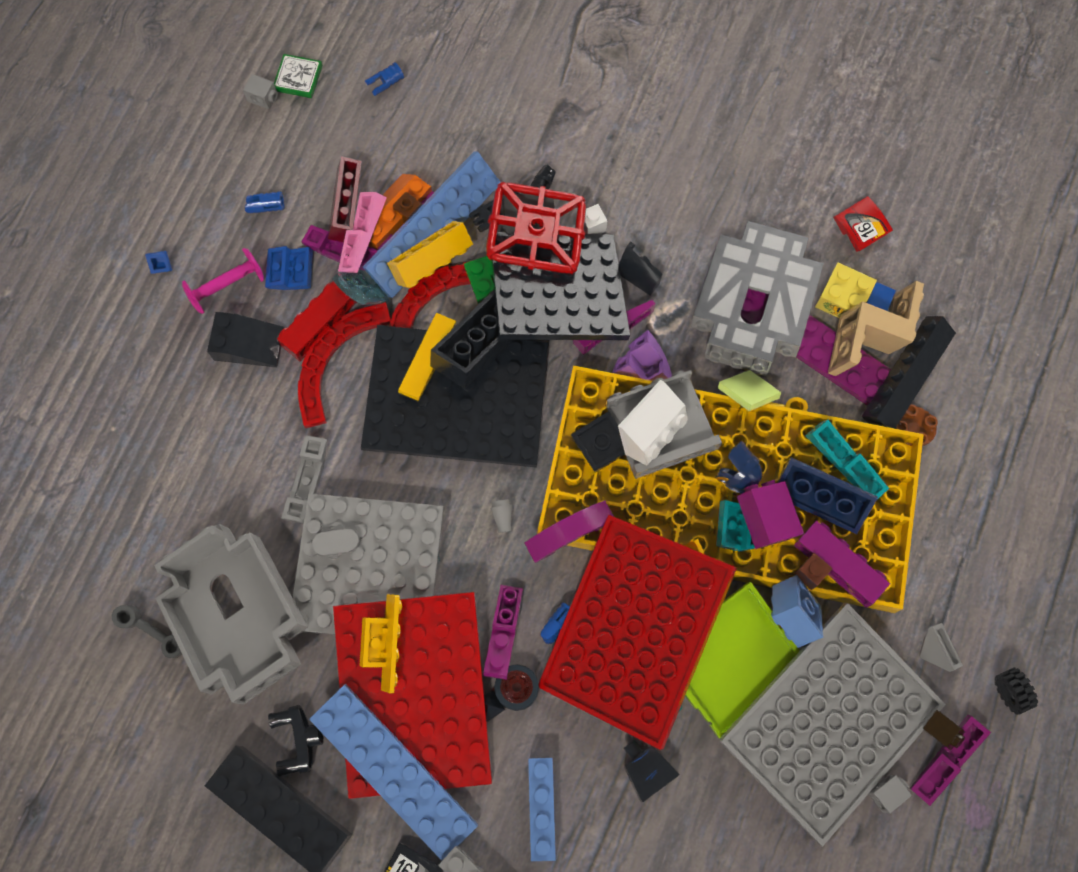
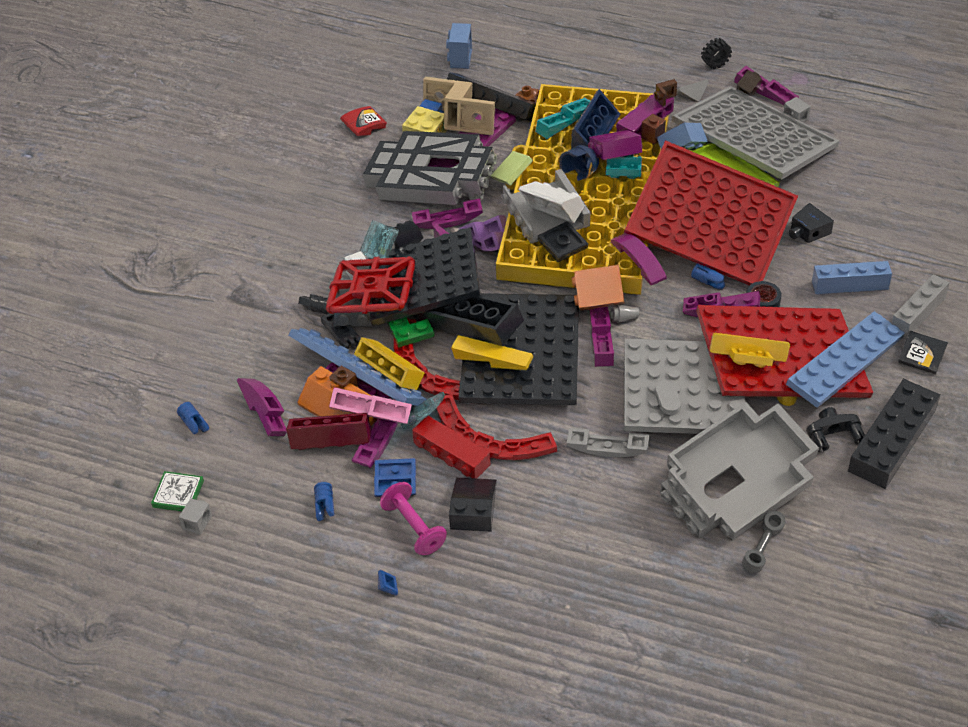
camera: 90 degrees left, 25 degrees down
(393, 138) = (268, 407): none -> magenta slope
(474, 487) = (601, 337): none -> magenta slope
(526, 482) = (598, 287): none -> orange brick
(614, 236) = (378, 240): none -> clear light blue slope
(680, 319) = (448, 218): none -> magenta slope
(878, 589) = (665, 90): none -> reddish brown bracket
(1015, 335) = (459, 45): none -> medium blue brick

